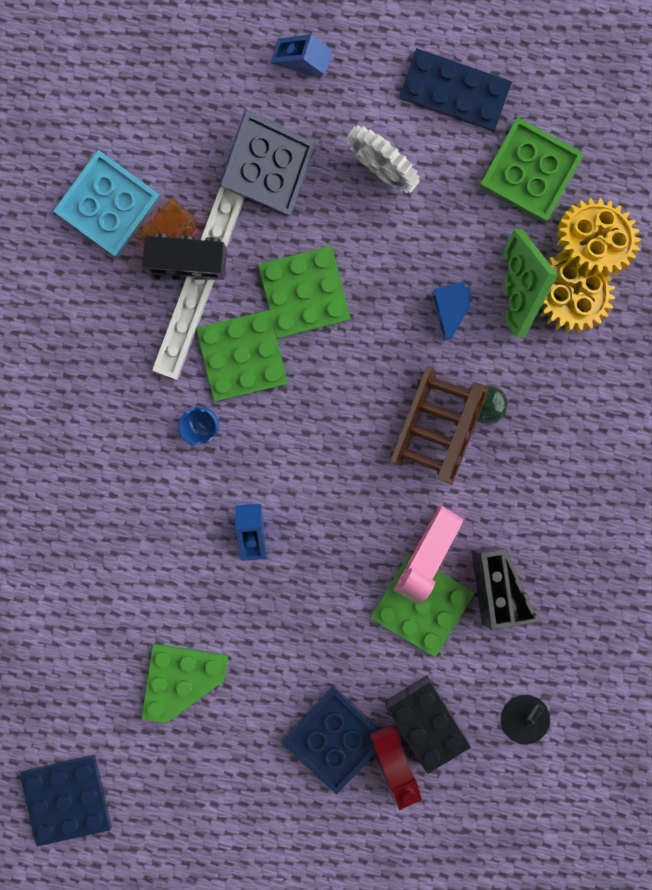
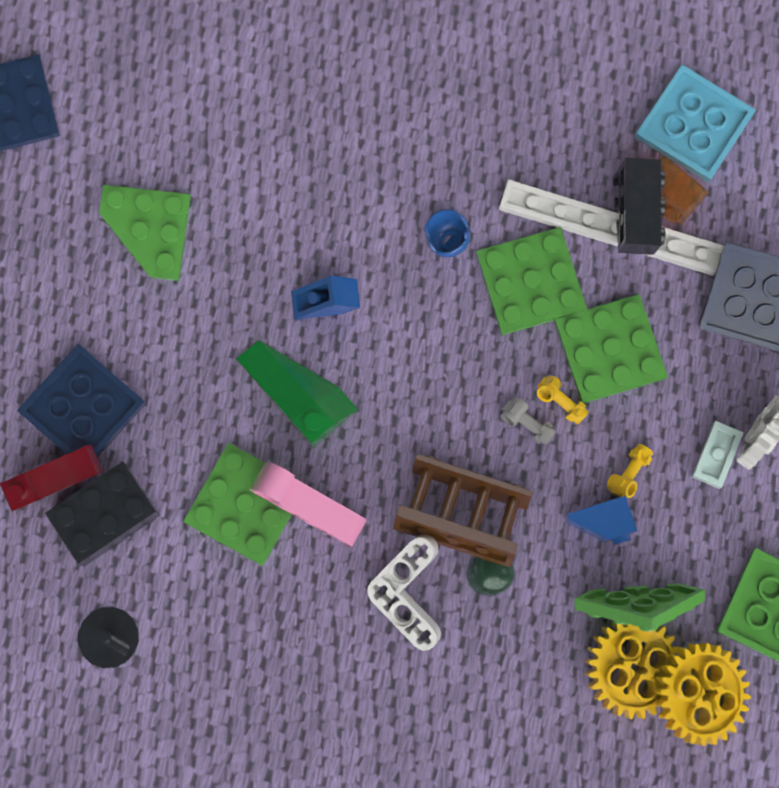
camera: 80 degrees right, 10 degrees down
(333, 555) = (301, 395): none -> green wedge
(340, 346) = (549, 390): none -> yellow bar
(355, 376) = (515, 412): none -> light grey bar
(399, 208) = (717, 454): none -> light aqua plate
(422, 289) = (624, 484): none -> yellow bar
(497, 482) = (396, 588): none -> white beam
(499, 591) = (267, 593): black wedge -> none

